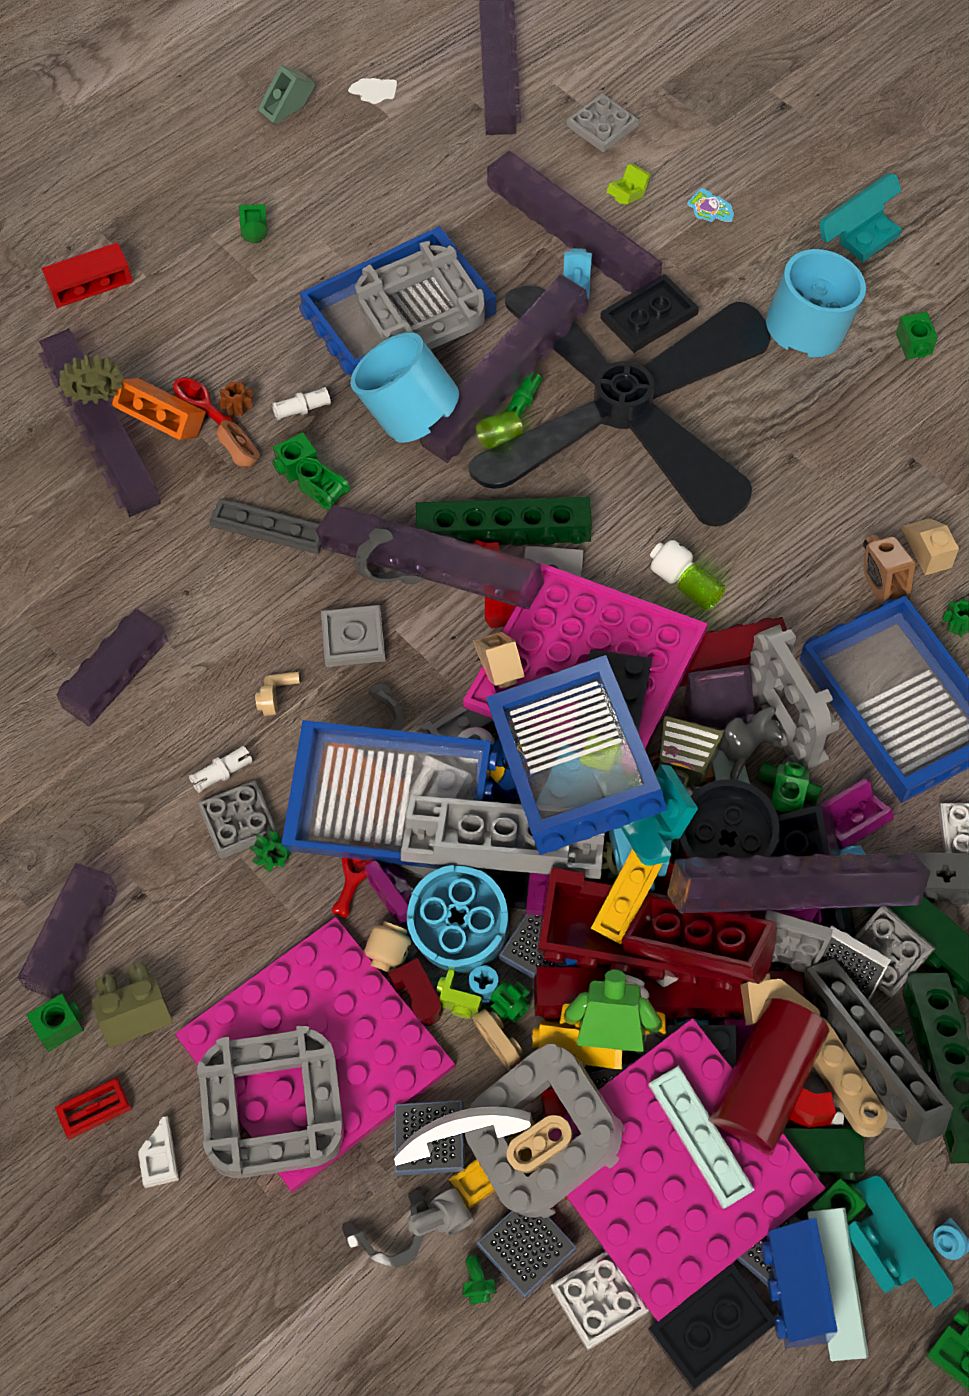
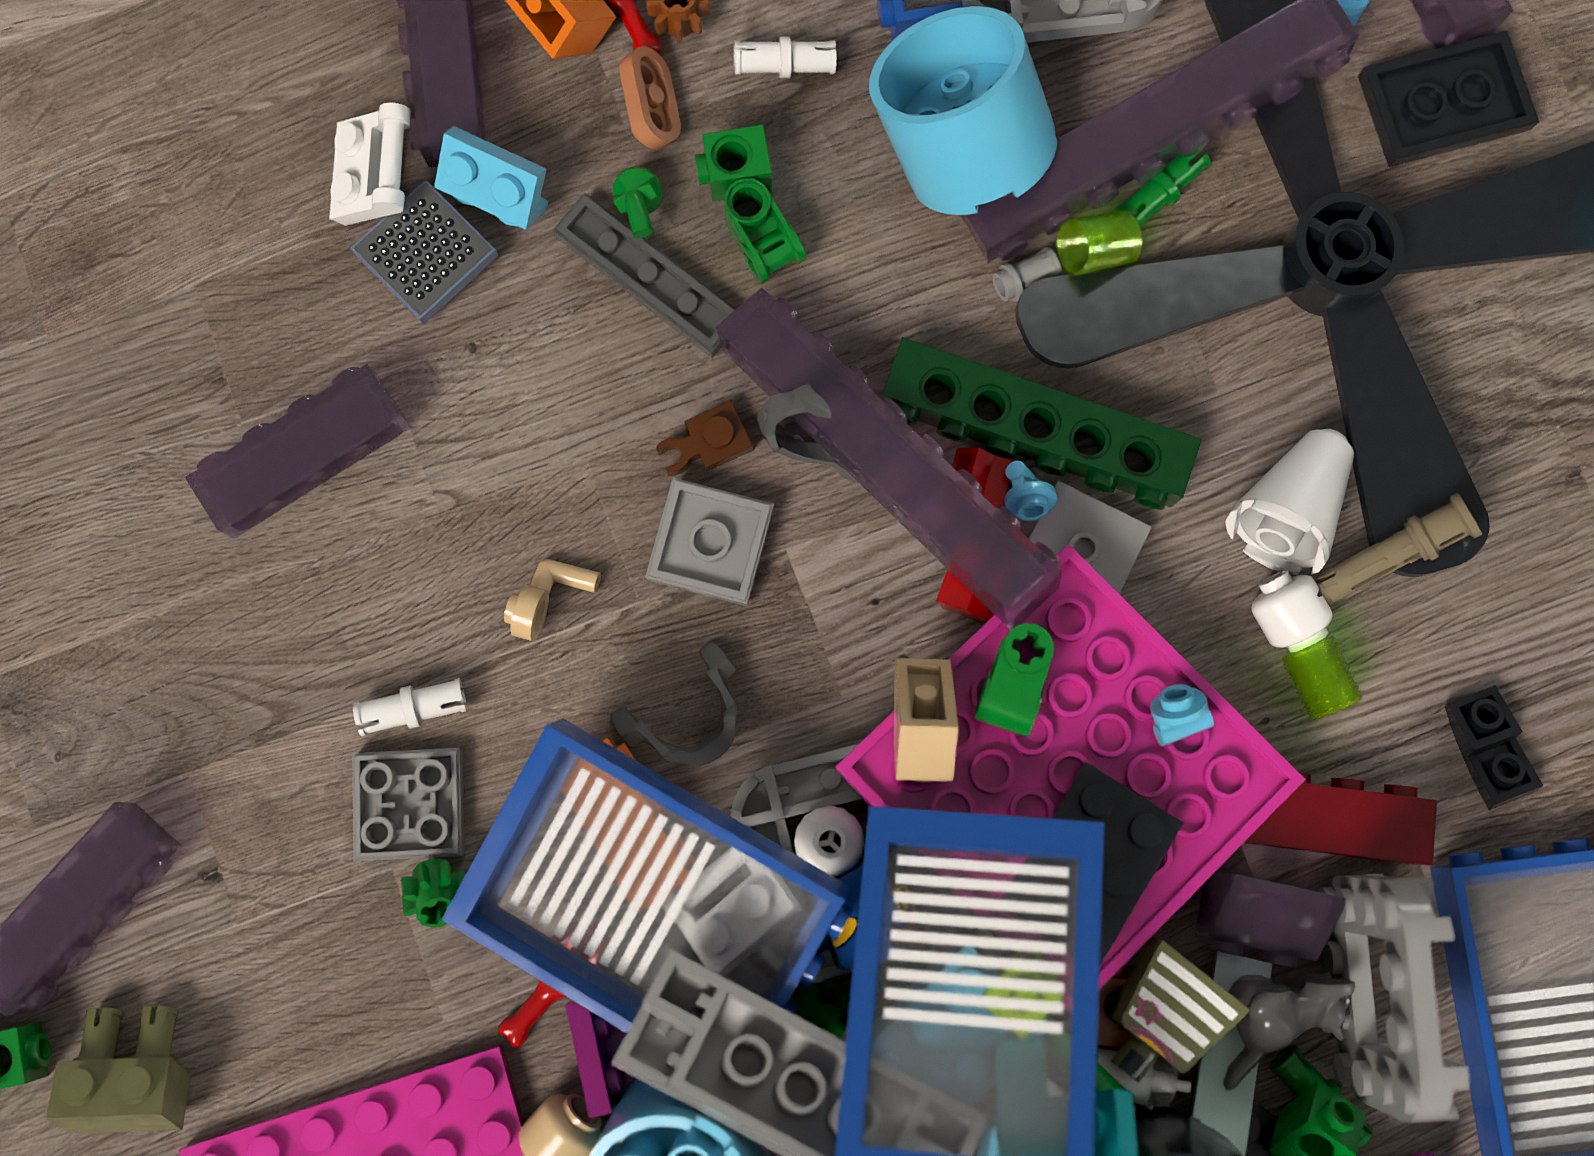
camera: 15 degrees right, 20 degrees up
(93, 522) = (369, 165): none -> white plate
(144, 552) = (425, 252): none -> tile
(168, 503) = (490, 178): none -> medium azure bracket
(249, 489) = (638, 194): none -> green plate
(332, 589) = (714, 438): none -> reddish brown plate
(461, 462) = (1016, 277): none -> light grey pin
(514, 549) = (1029, 497): none -> medium azure plate
(538, 626) = (1013, 688): none -> green piece
(629, 613) = (1179, 713): none -> medium azure plate
(650, 513) = (1296, 505): none -> white cone
(718, 499) = (1419, 539): none -> dark tan pin
(802, 591) = (1489, 747): none -> black slope

